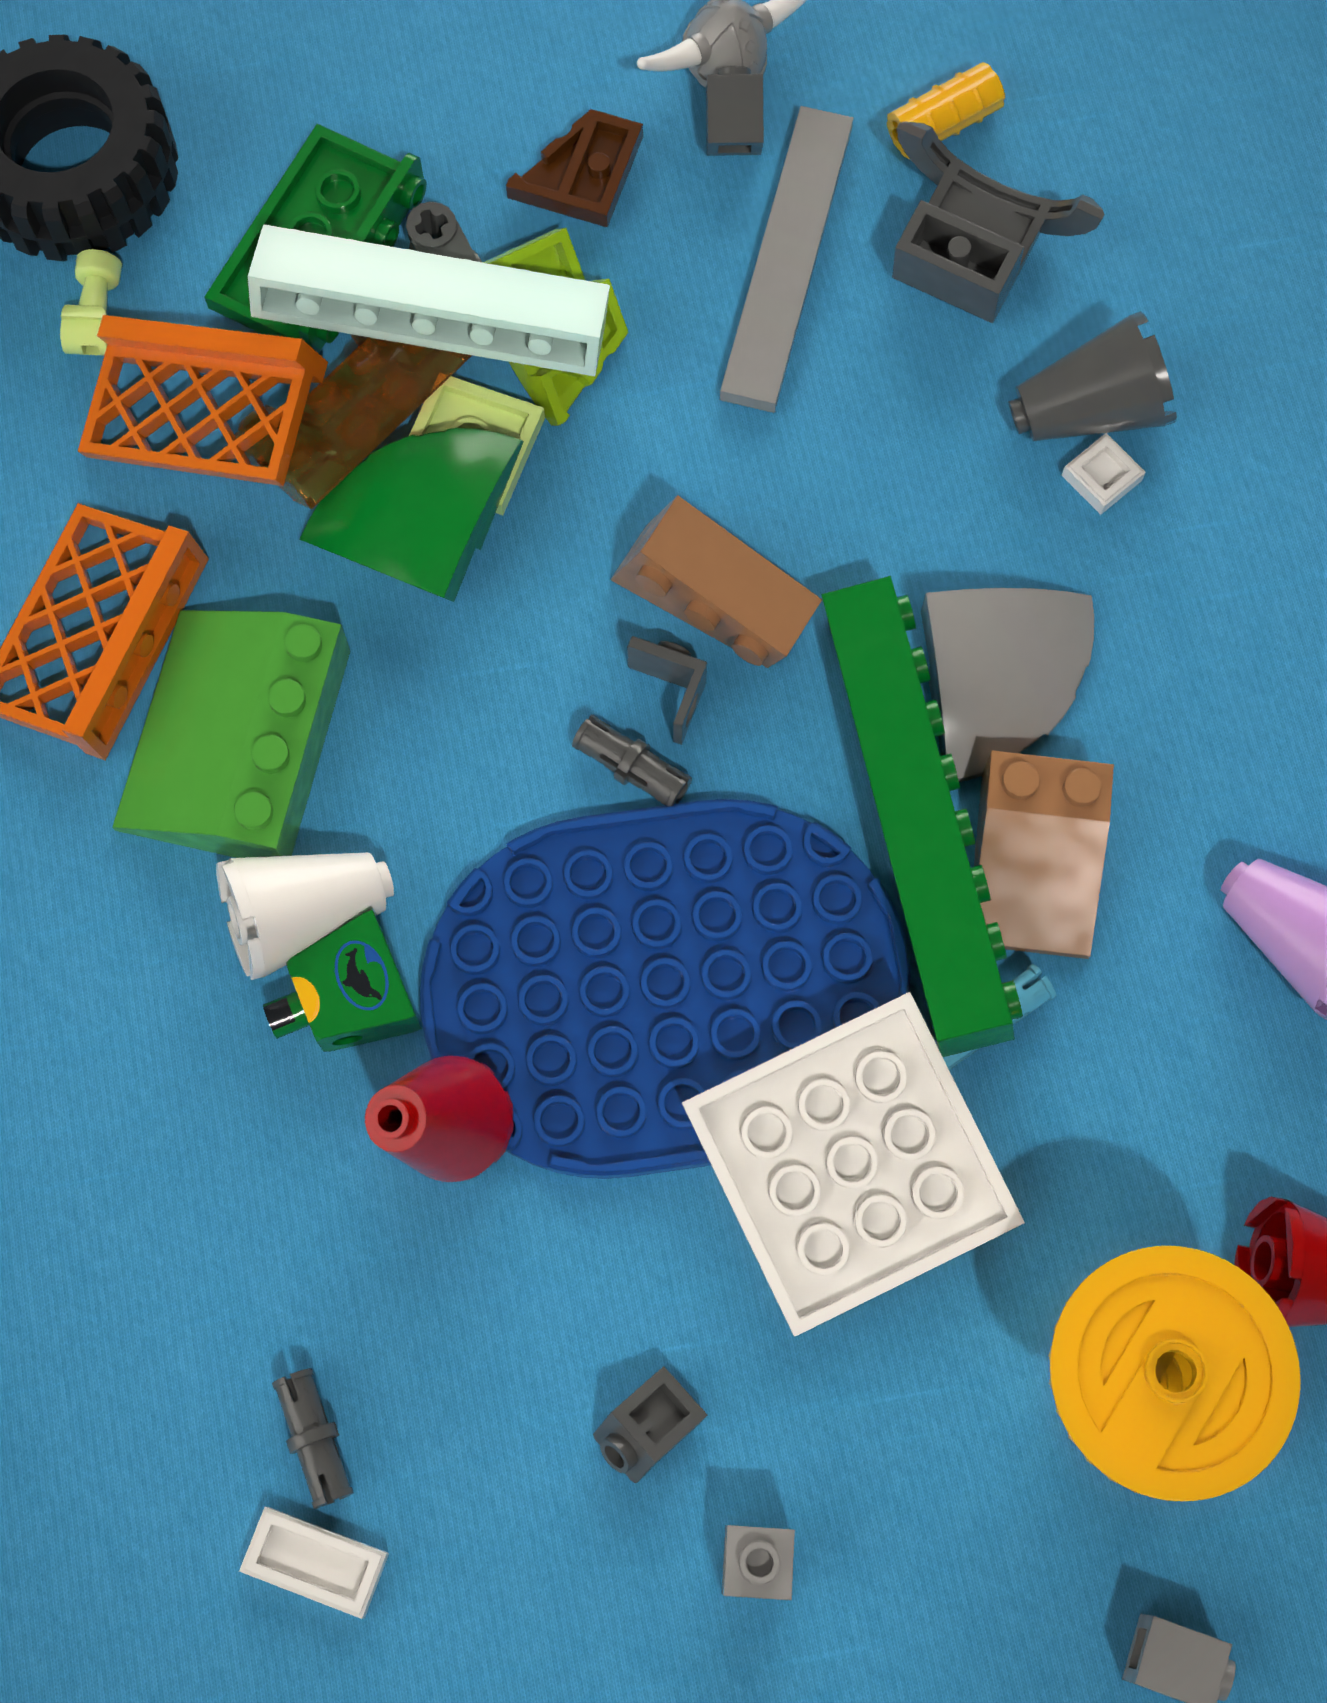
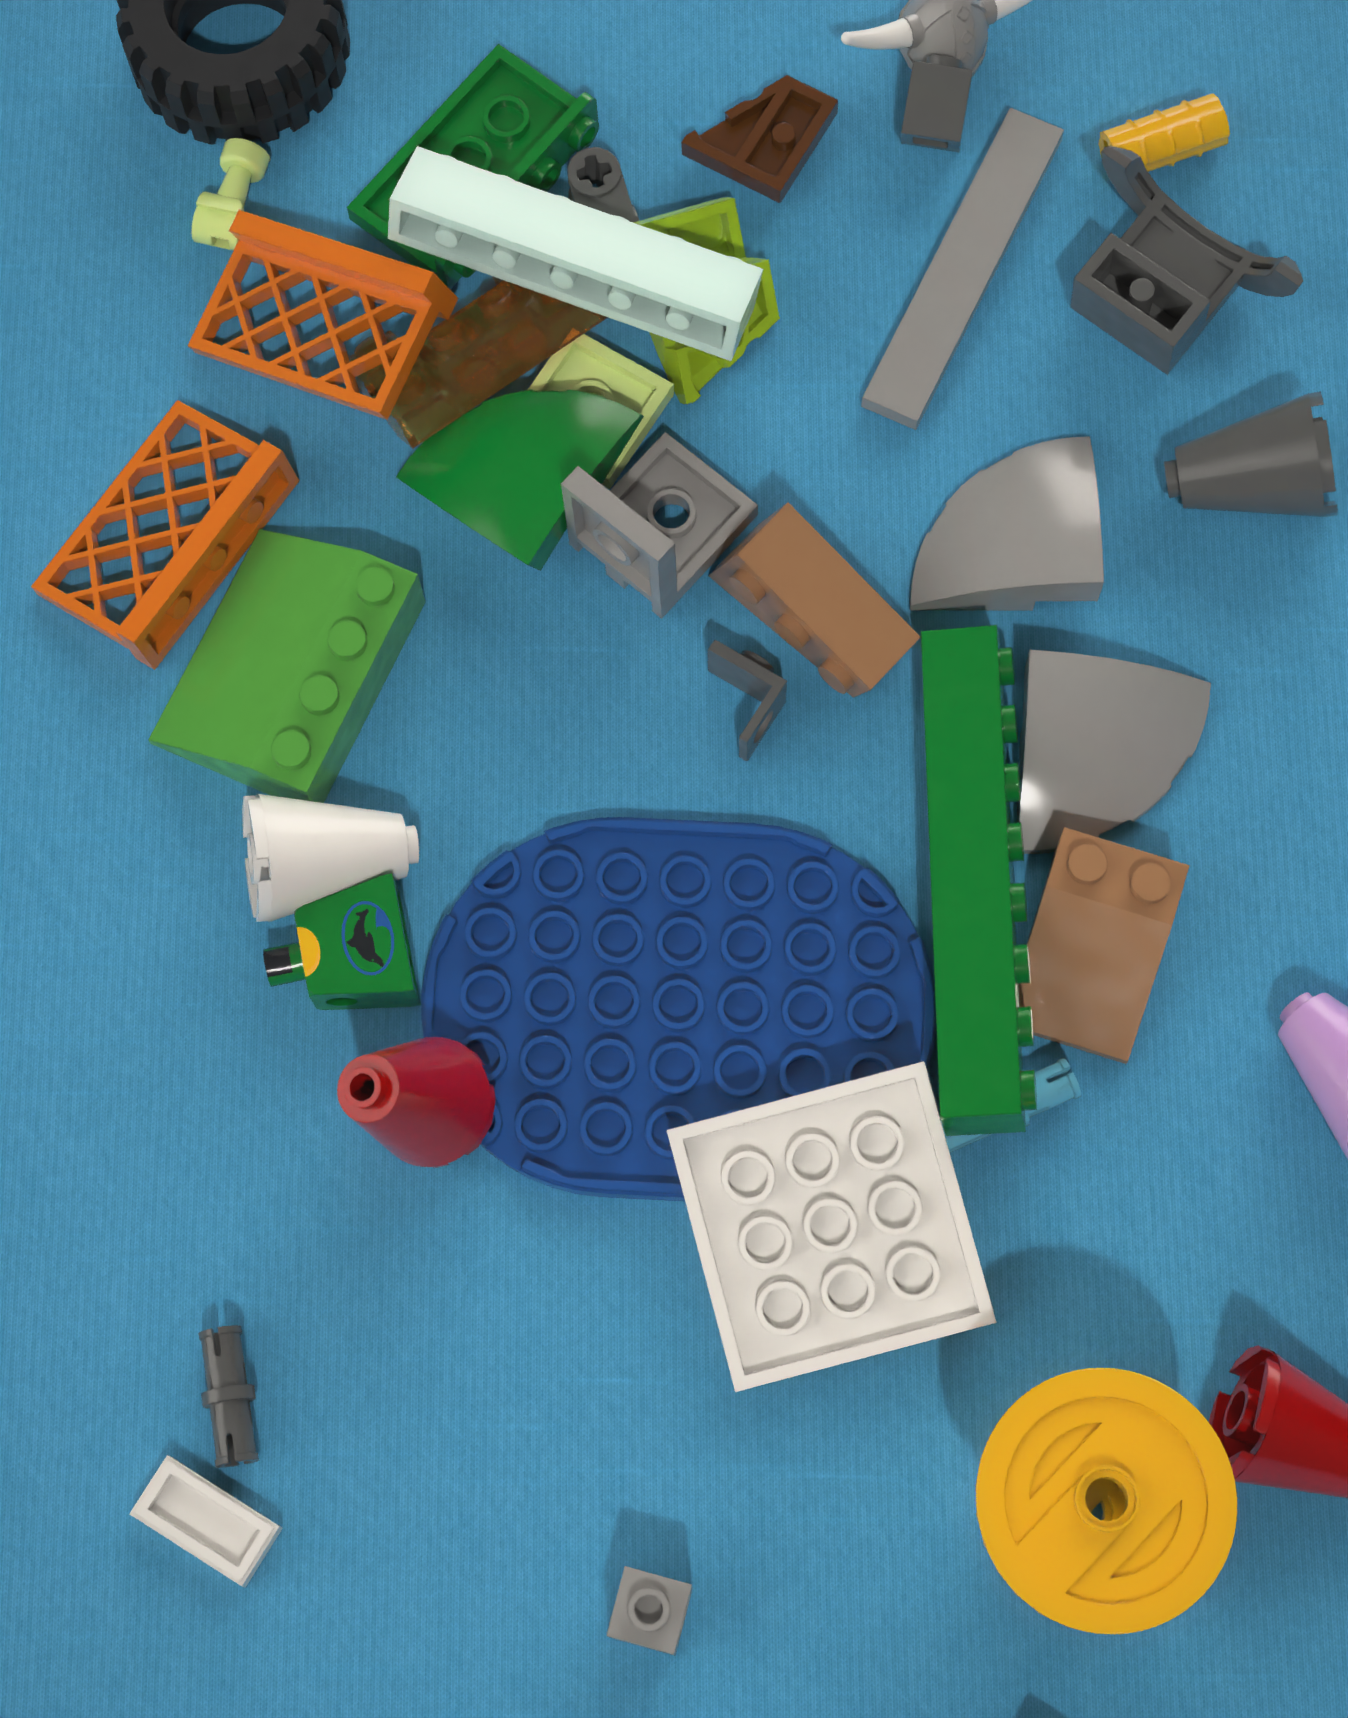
camera: 15 degrees right, 0 degrees up
(539, 564) = (625, 536): none -> light grey bracket
(631, 761) = (690, 769): dark grey pin -> none
(648, 1425) = (568, 1451): dark grey bracket -> none
(888, 492) = (1017, 535): none -> light grey brick
(1103, 473) = (1251, 555): white tile -> none

